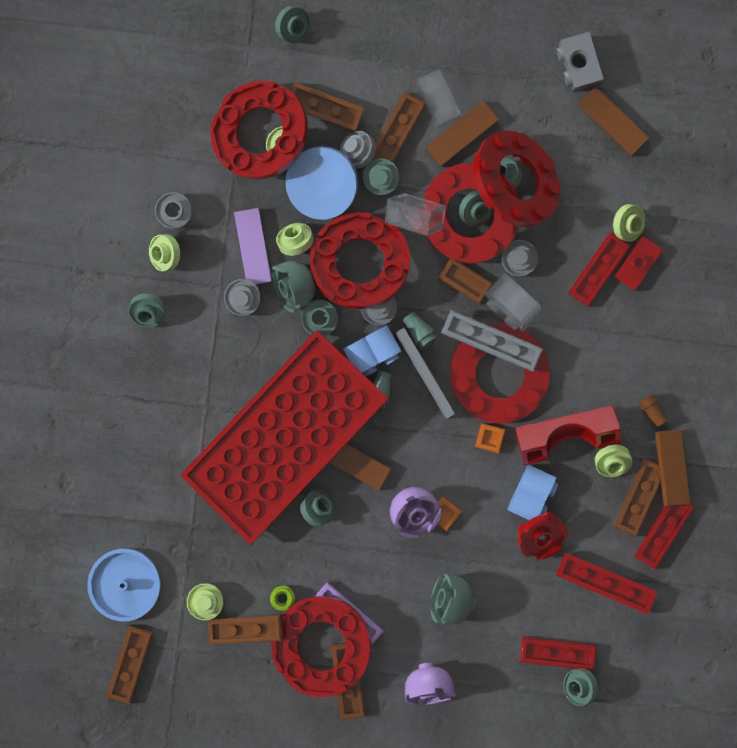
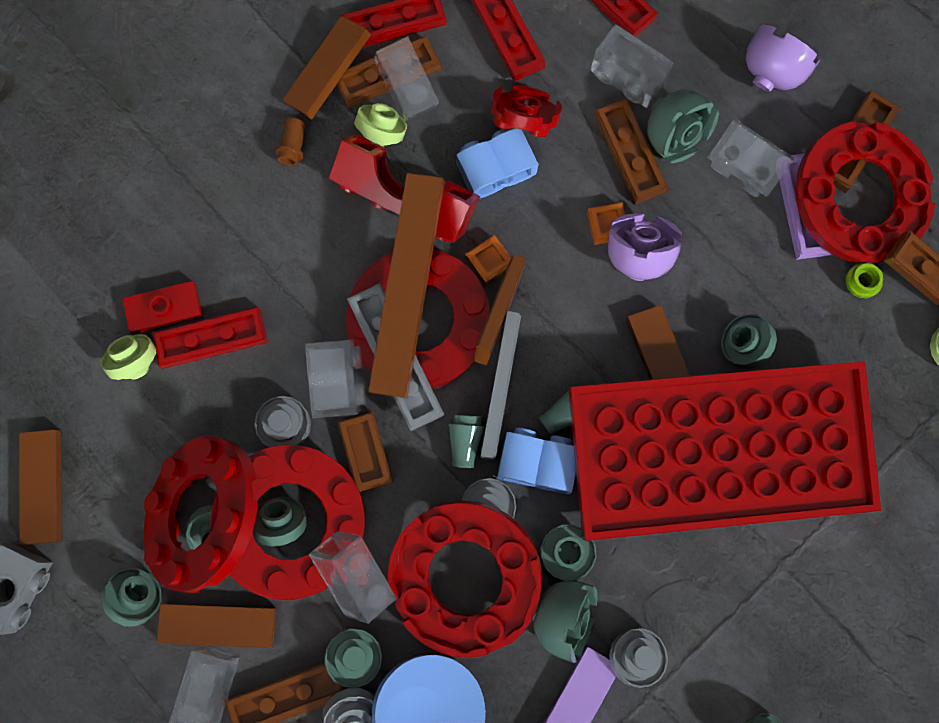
camera: 135 degrees left, 10 degrees down
(294, 239) = (518, 673): yellowish green plate -> none
(398, 613) = (750, 159): none -> clear brick
(460, 412) = (499, 309): none -> dark orange tile
(467, 566) = (630, 151): none -> dark orange tile
(505, 611) = (631, 66): none -> clear brick
(515, 111) = (131, 597): none -> sand green plate
(516, 380) = (406, 286): none -> dark orange tile
(620, 495) = (406, 79): none -> clear brick

